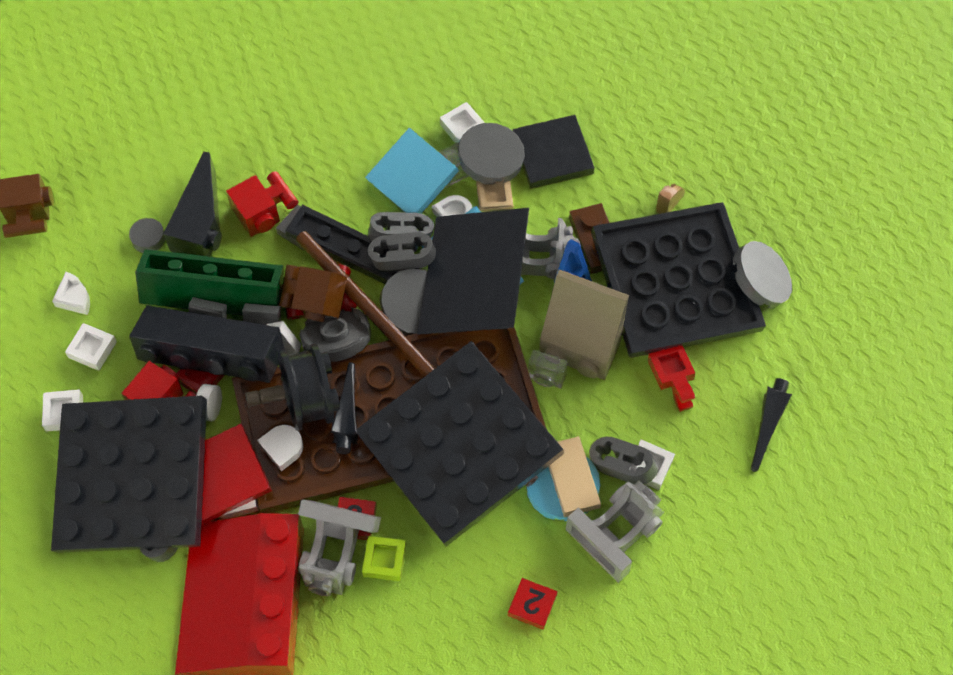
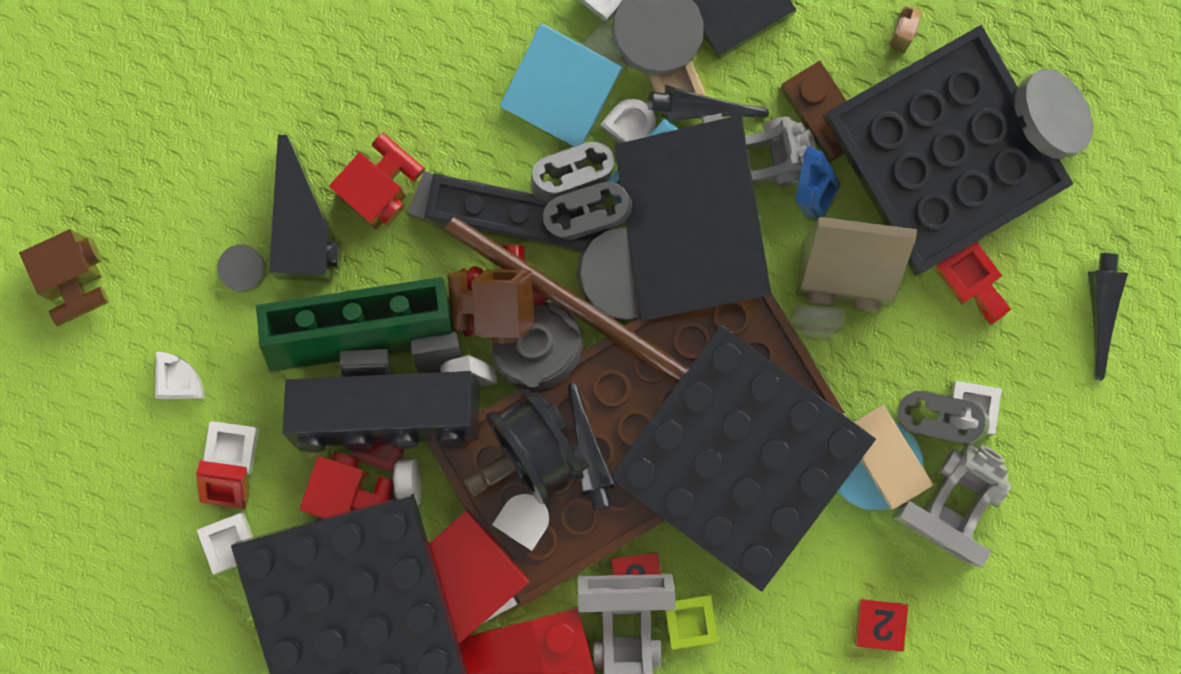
camera: 15 degrees left, 20 degrees up
(75, 368) = (222, 484): none -> red tile
(493, 201) = (682, 105): none -> black piece

